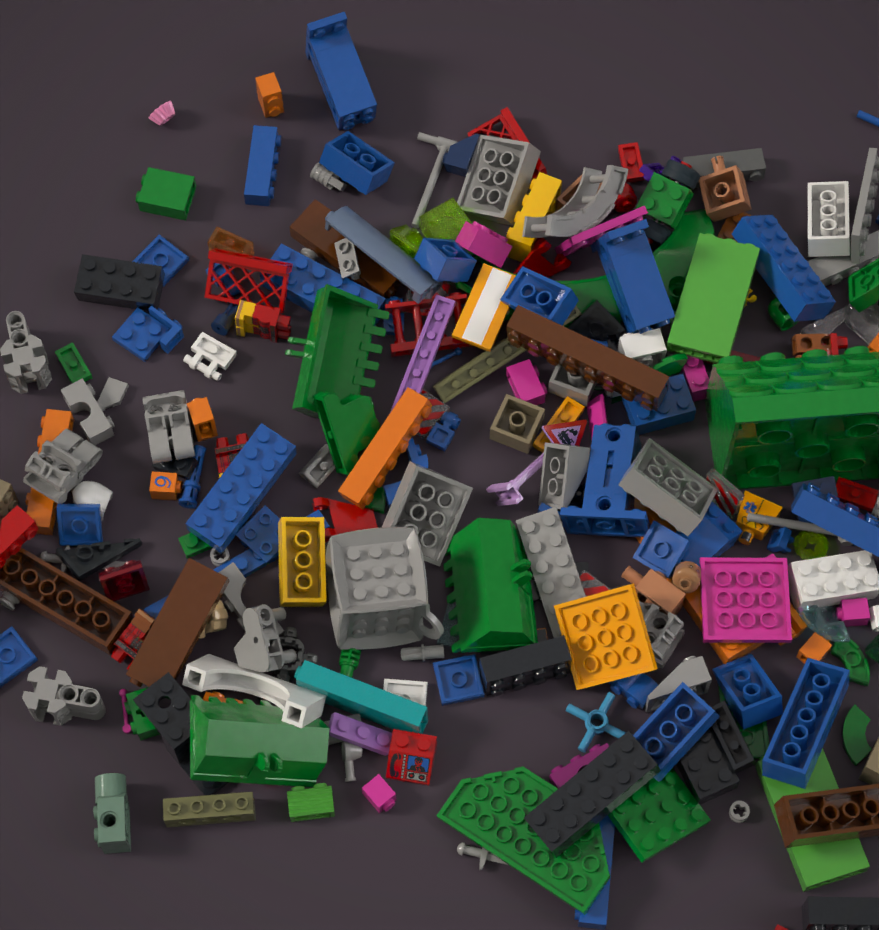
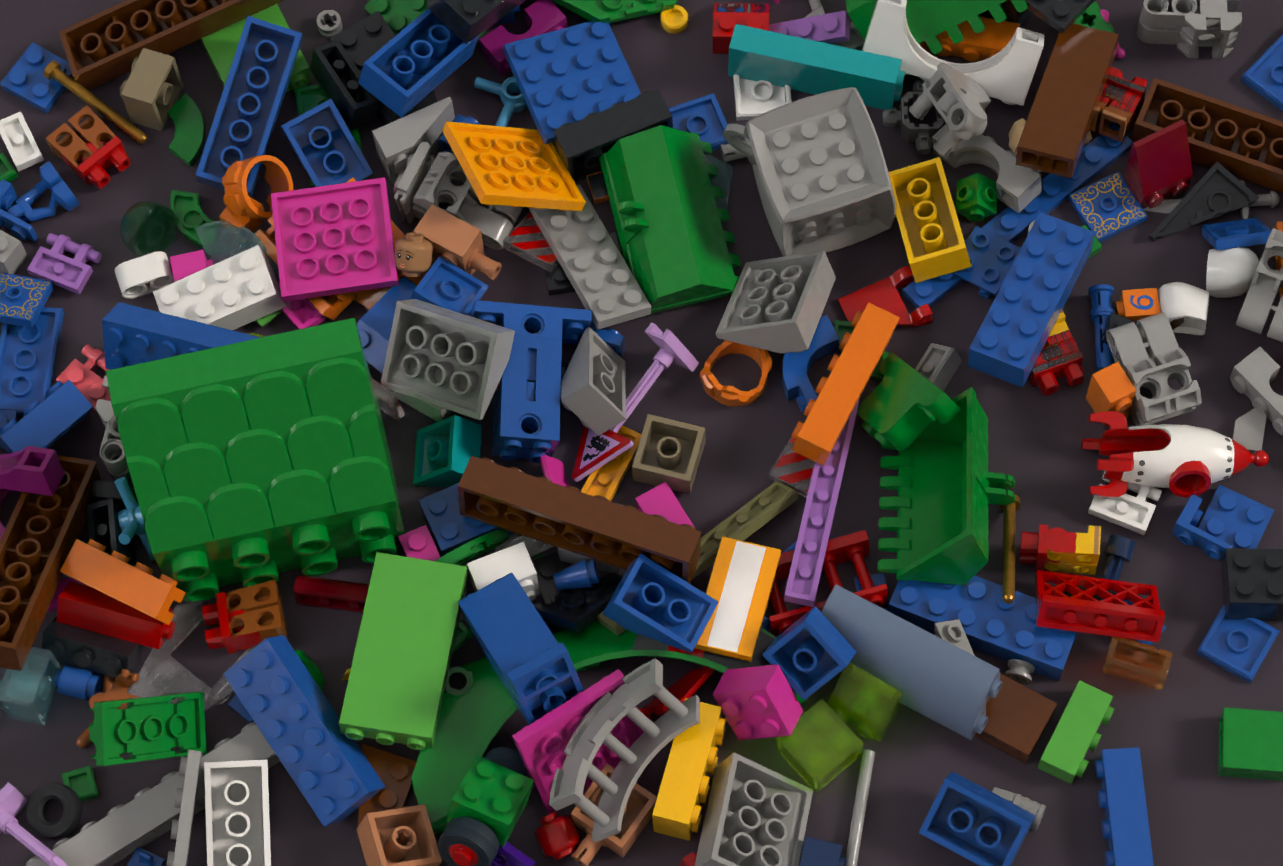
camera: 175 degrees right, 0 degrees up
(133, 477) = (1184, 307): none -> white piece
(163, 370) = (1165, 456): none -> piece
(163, 568) = (1107, 207): none -> blue plate
(261, 582) = (976, 197): none -> green brick
(280, 215) = (1076, 733): none -> bright green brick
(288, 364) = (1009, 532): none -> pearl gold bar
(443, 434) = (772, 433): blue plate -> none
(461, 772) = (674, 19): none -> yellow tile
(470, 463) = (730, 395): none -> orange piece
(549, 721) = (570, 74): none -> blue plate
(677, 442) = (445, 451): none -> teal slope
(678, 655) = (408, 185): none -> light grey plate
(815, 659) = (235, 184): none -> orange piece

